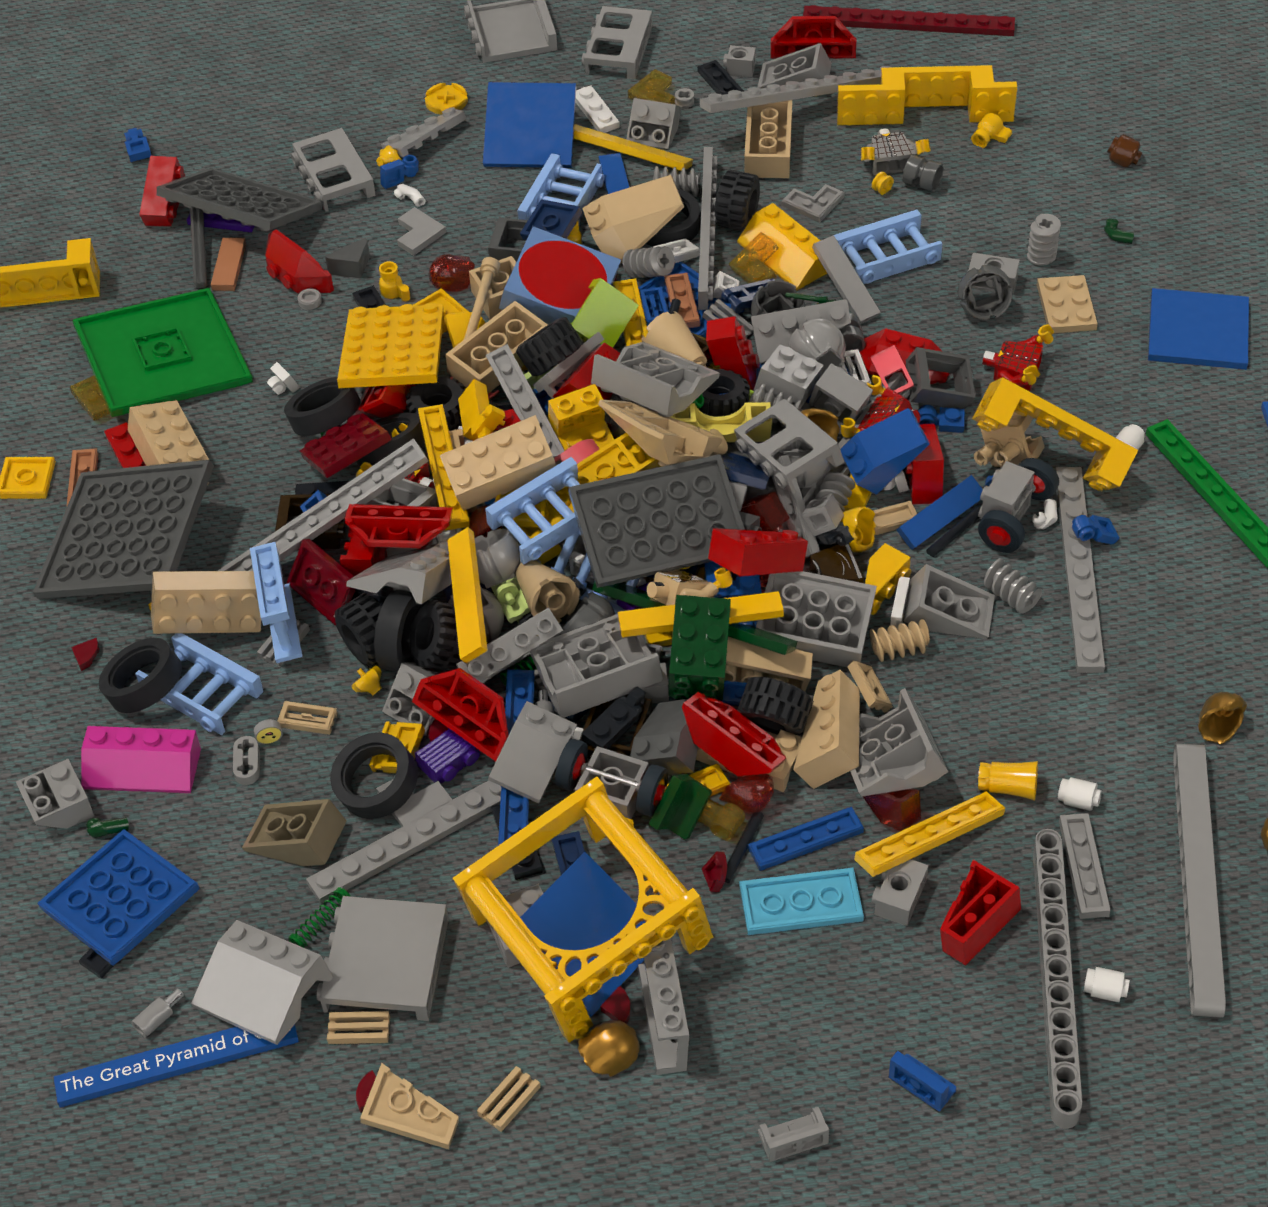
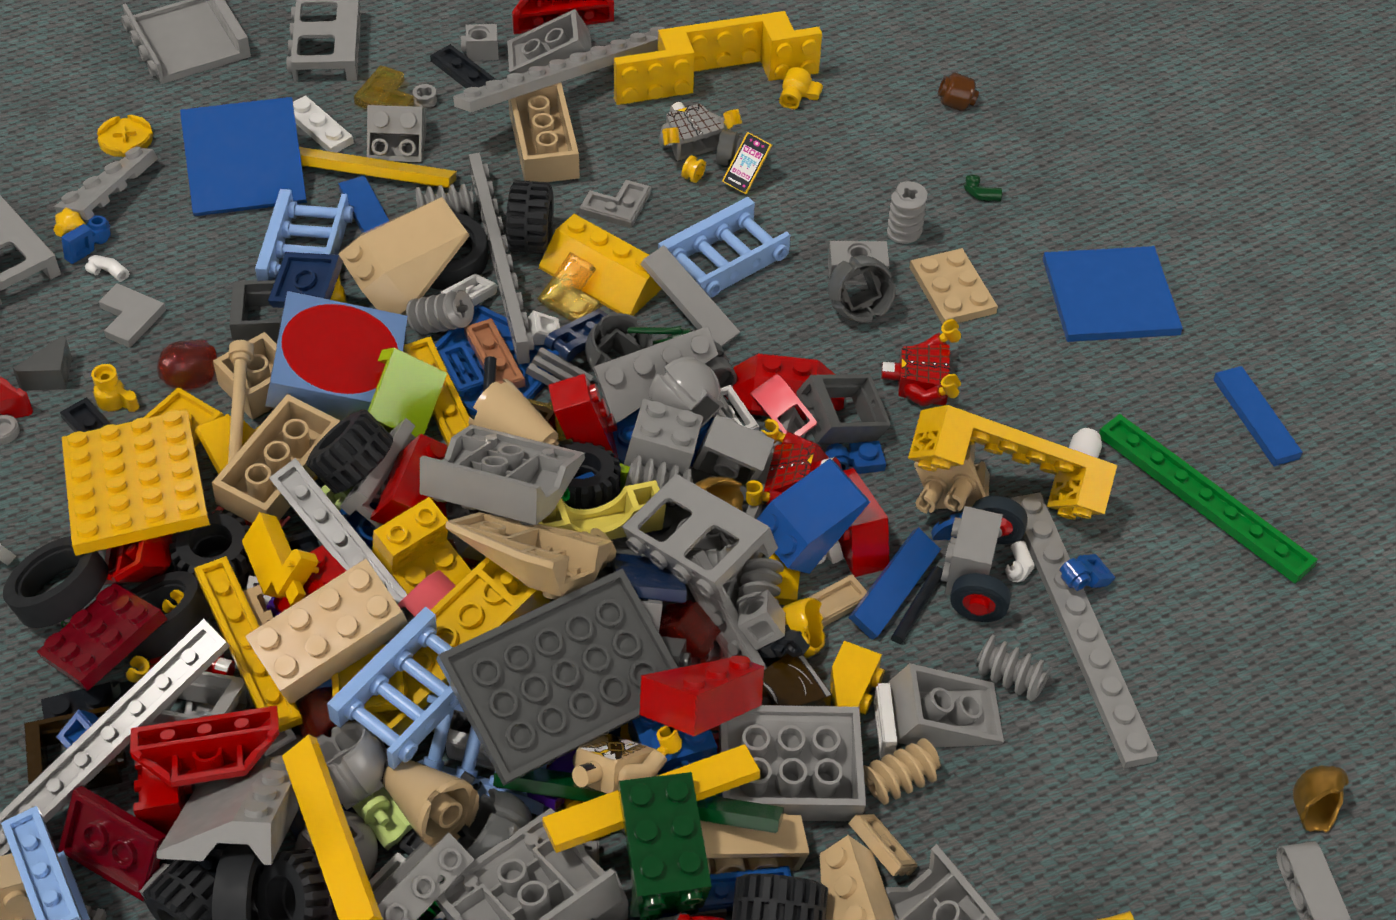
camera: 20 degrees left, 0 degrees up
(925, 183) = (747, 163): none -> tile

